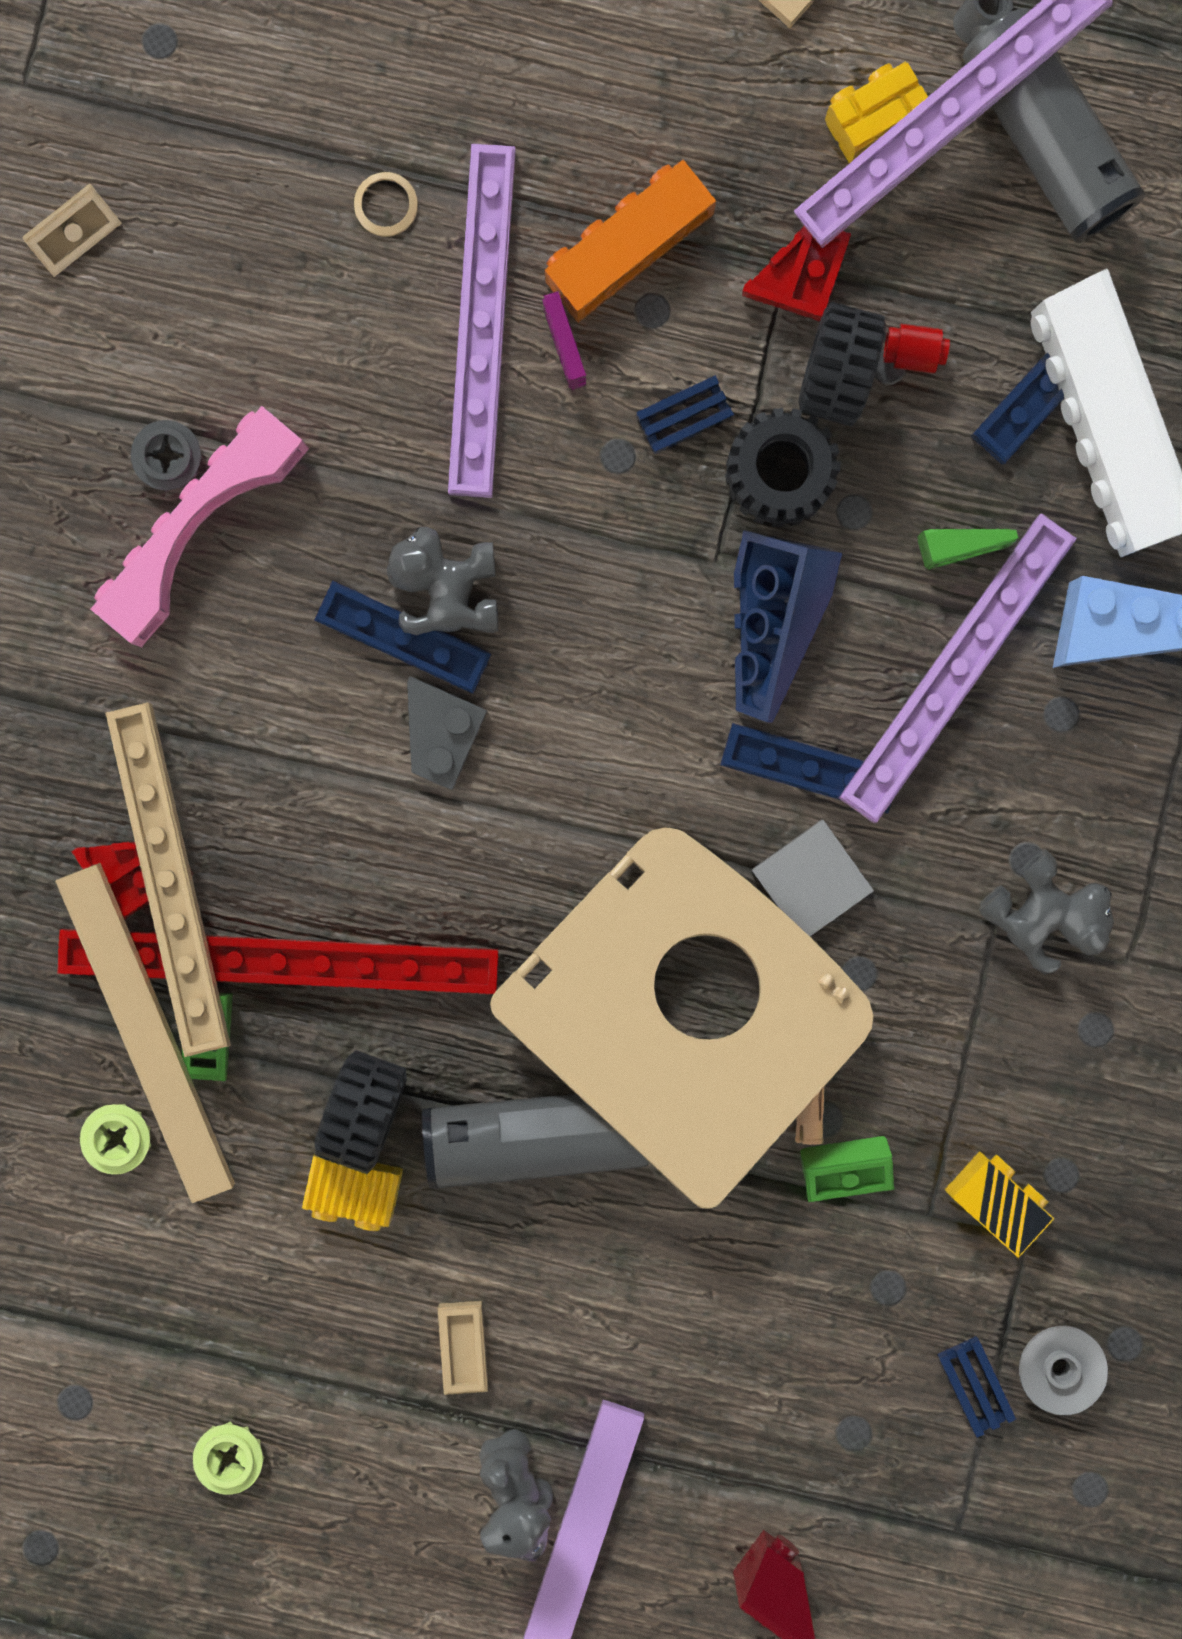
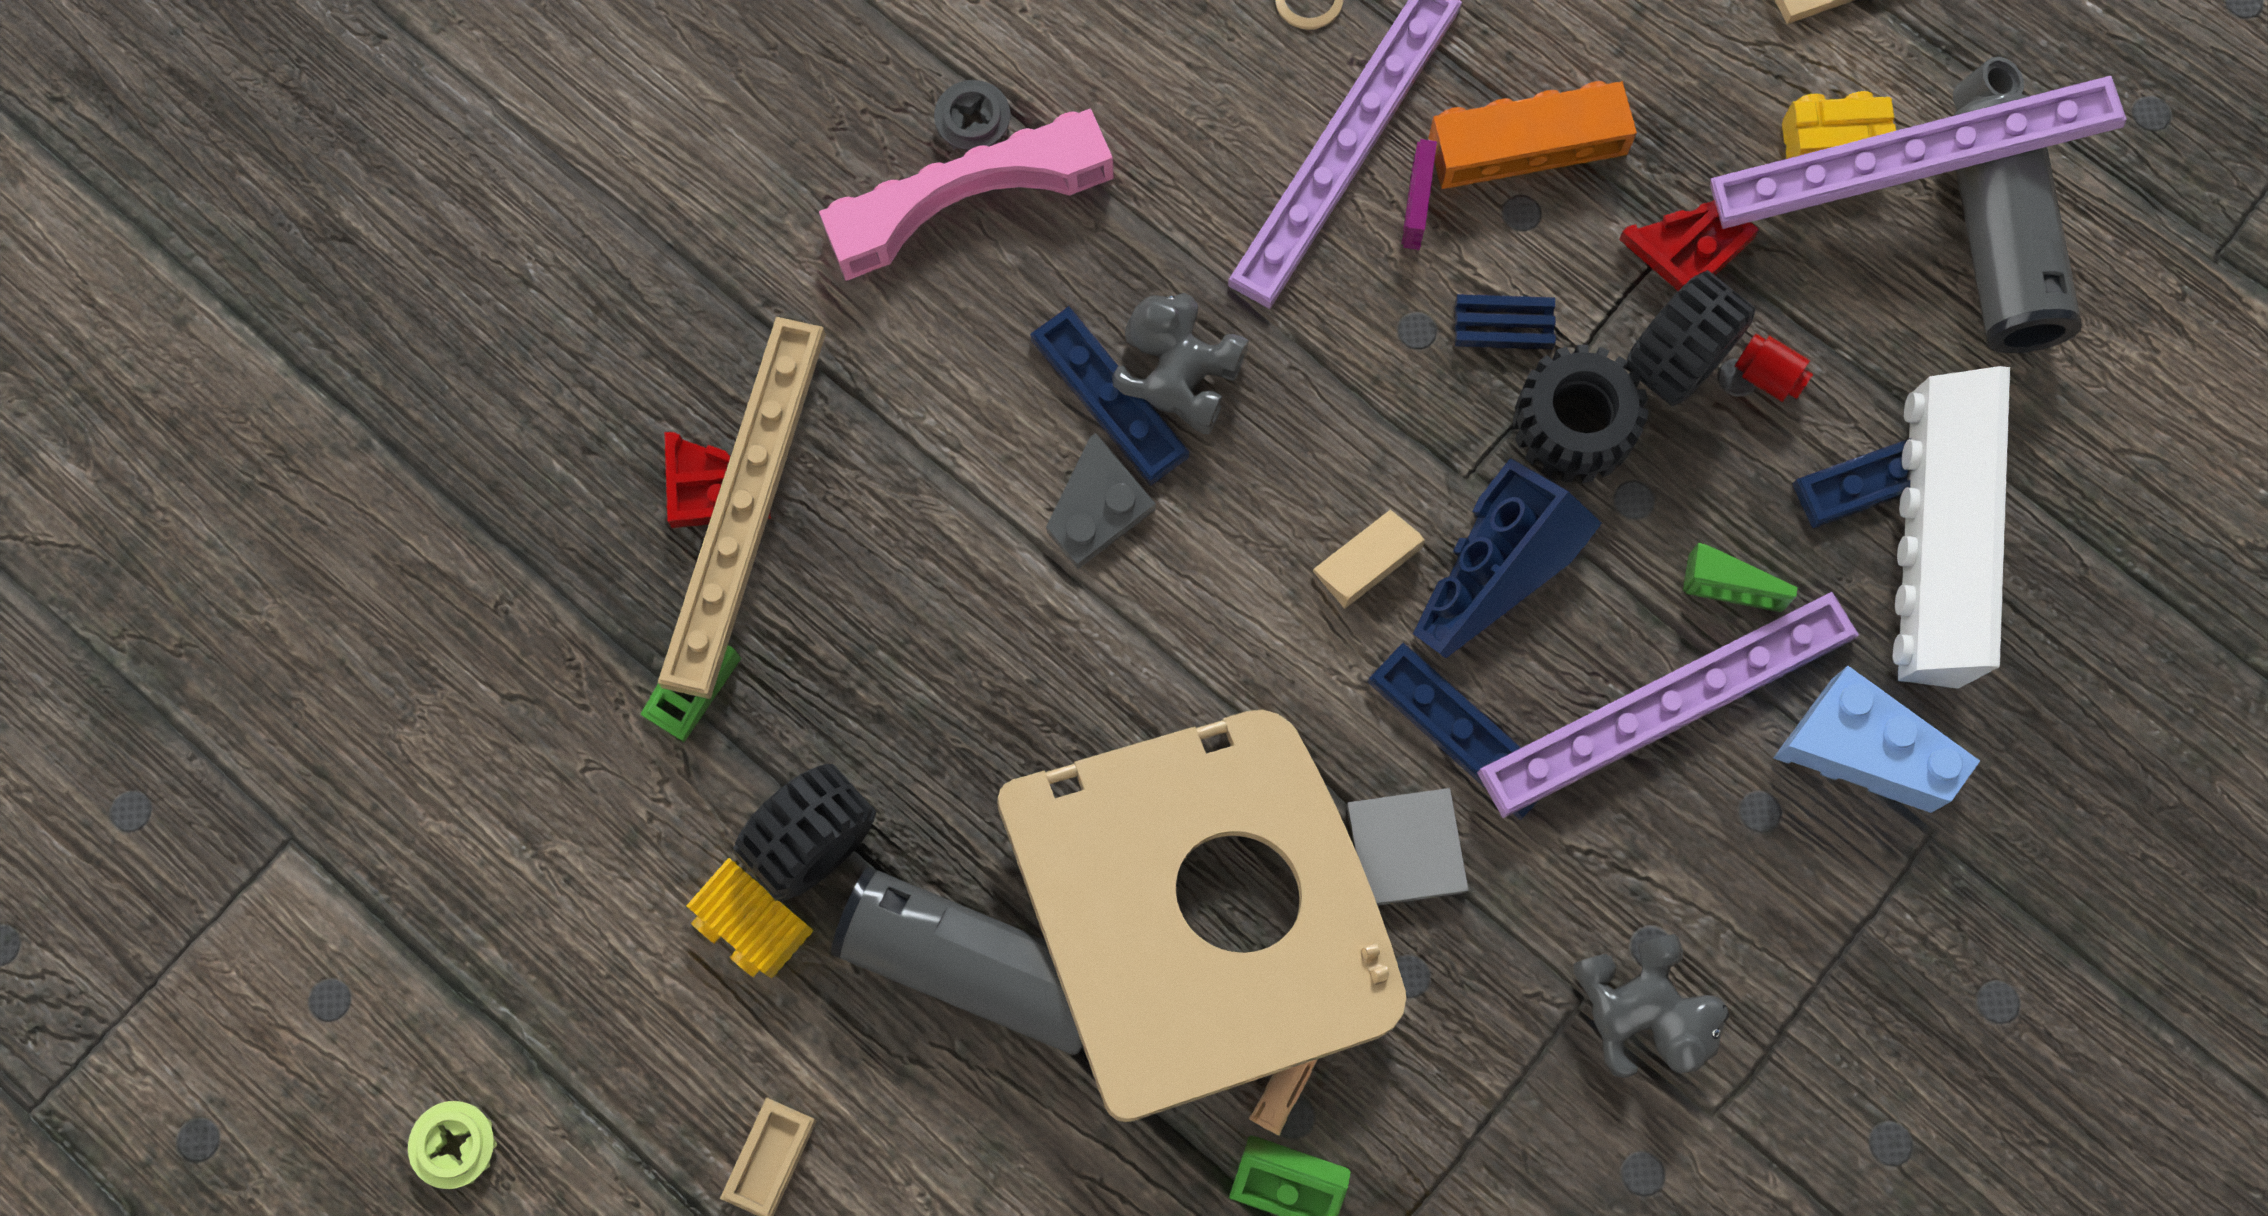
camera: 30 degrees right, 15 degrees down
(95, 1139) = (517, 731): yellowish green gear -> none
(145, 1032) = (631, 649): tan tile -> none
(318, 963) = (821, 653): red plate -> none
(672, 667) = (1369, 558): none -> tan slope

